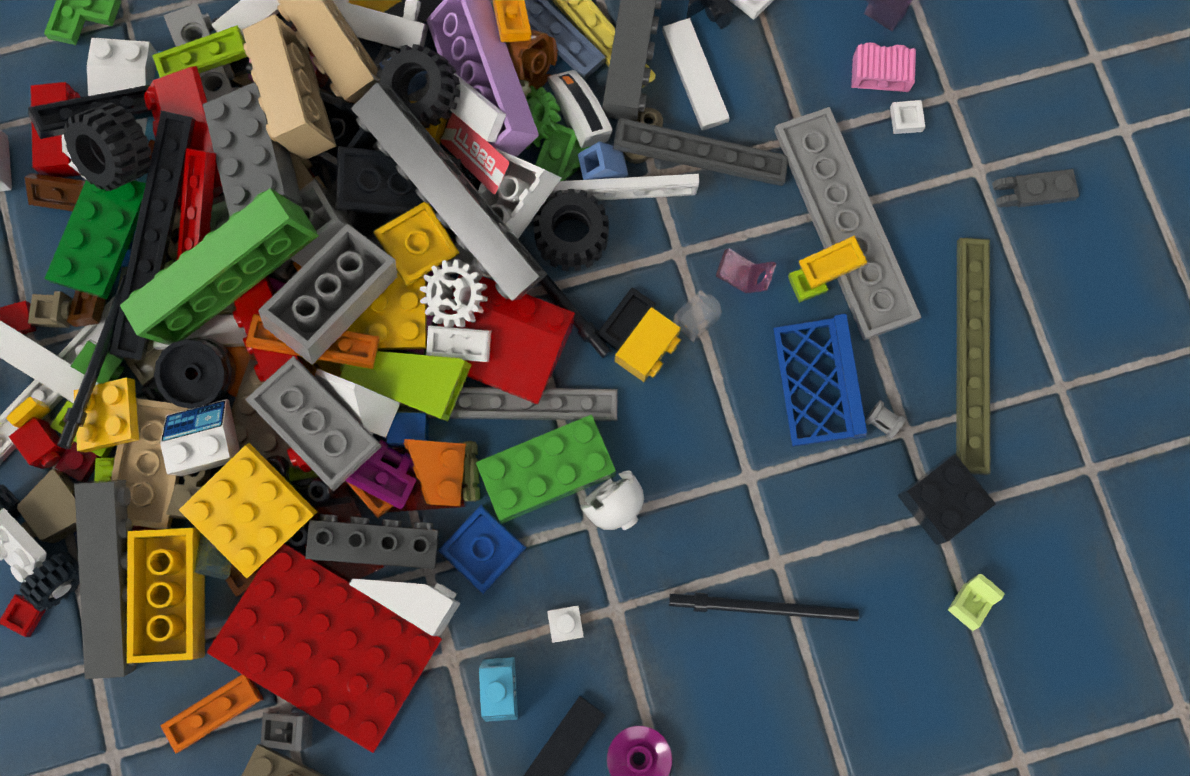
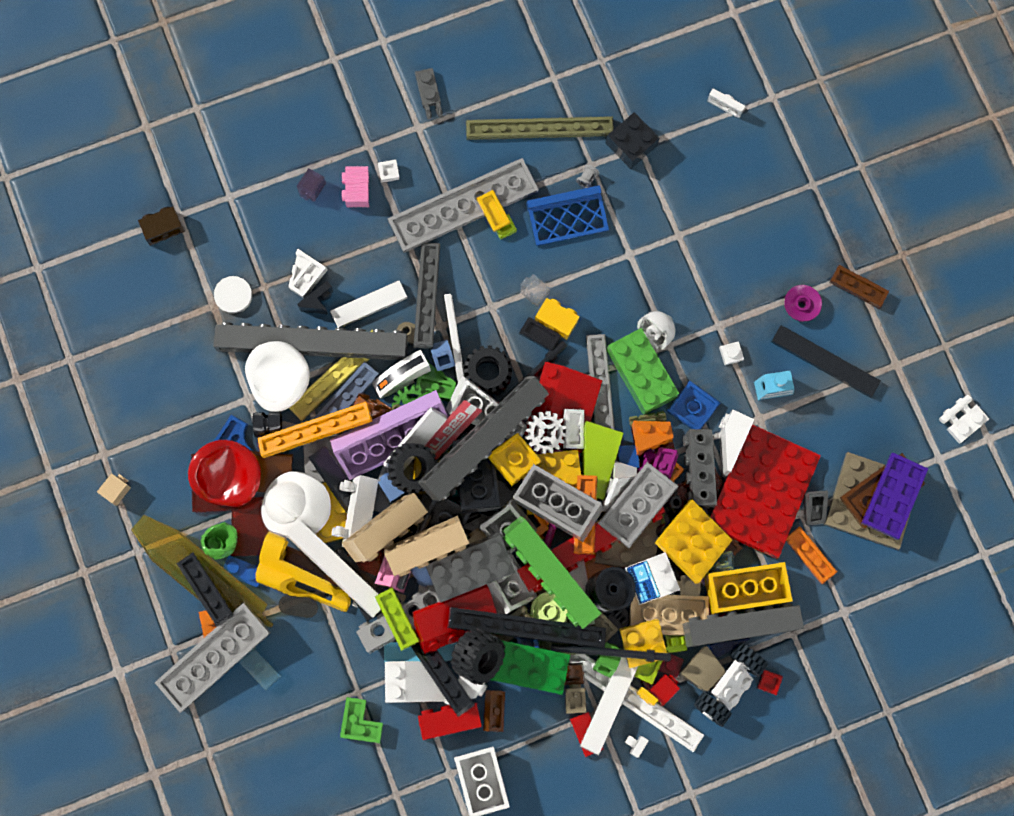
camera: 100 degrees left, 0 degrees up
(196, 198) = (510, 600): red plate -> none
(701, 602) = (708, 275): black bar -> none
(743, 273) = (503, 264): clear pink bracket -> none
(975, 601) = (689, 123): yellowish green bracket -> none
(1010, 672) = (726, 103): none -> white plate

